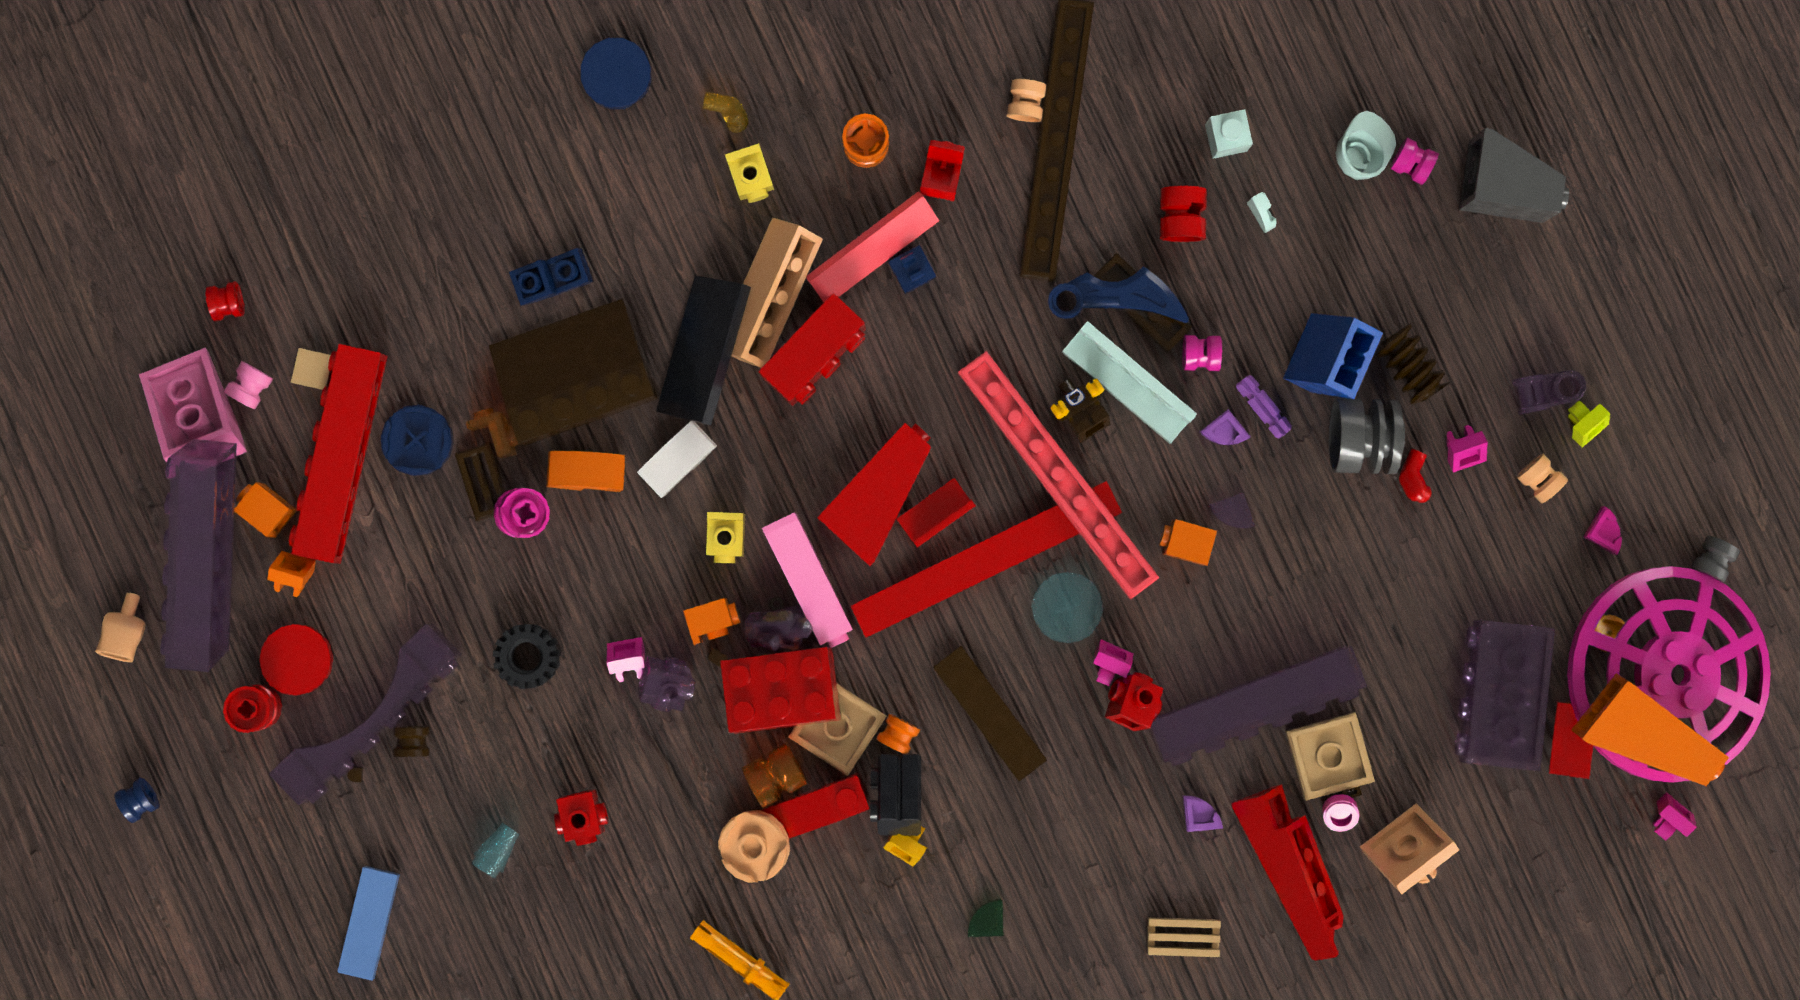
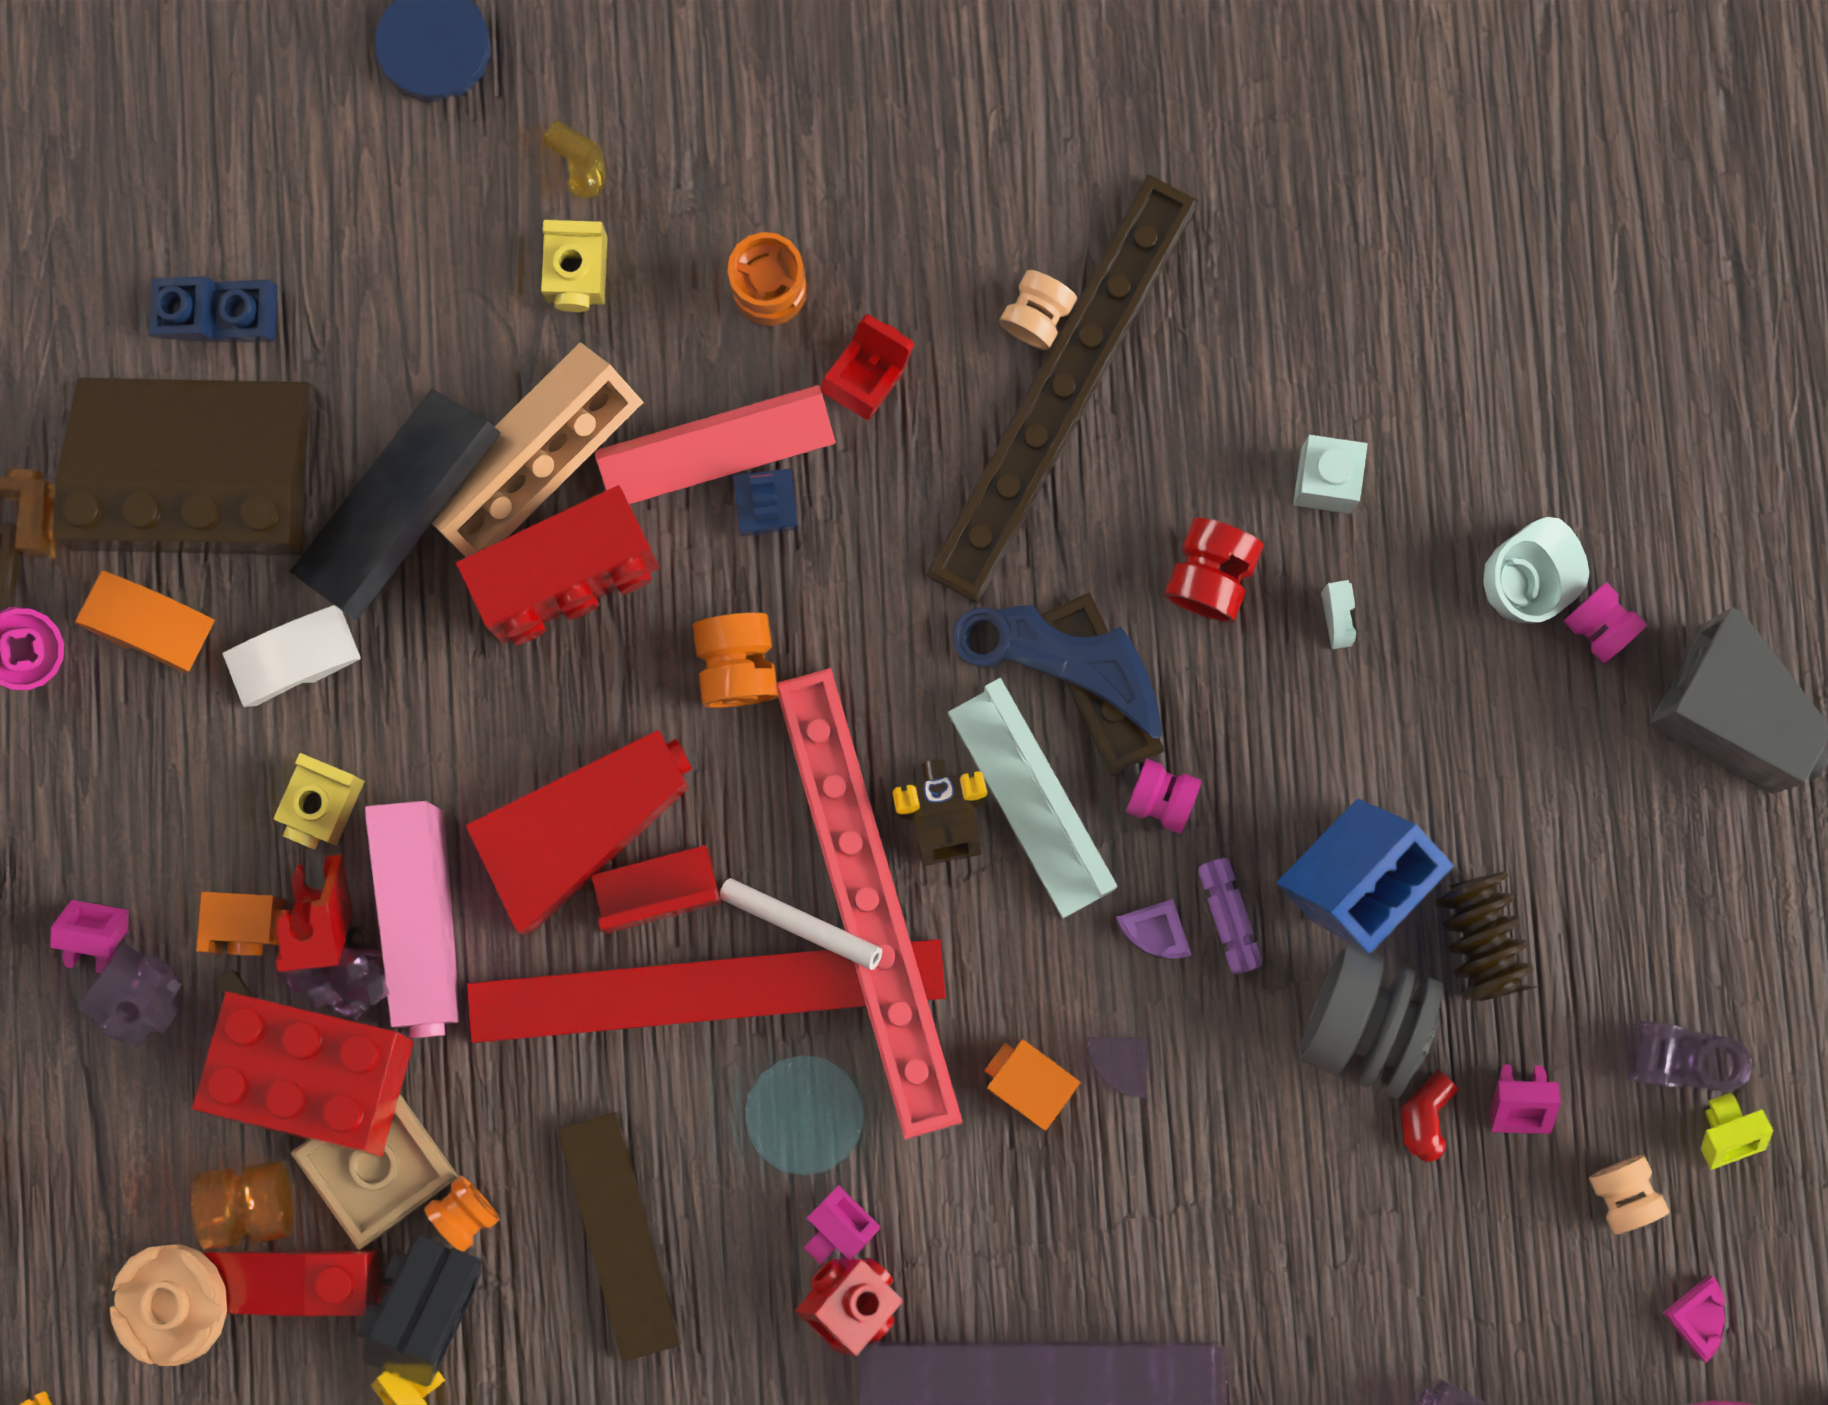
camera: 25 degrees right, 5 degrees down
(753, 602) = (318, 920): none -> red hinge
(931, 367) = (735, 660): none -> orange wheel
(1026, 501) = (801, 923): none -> white piece

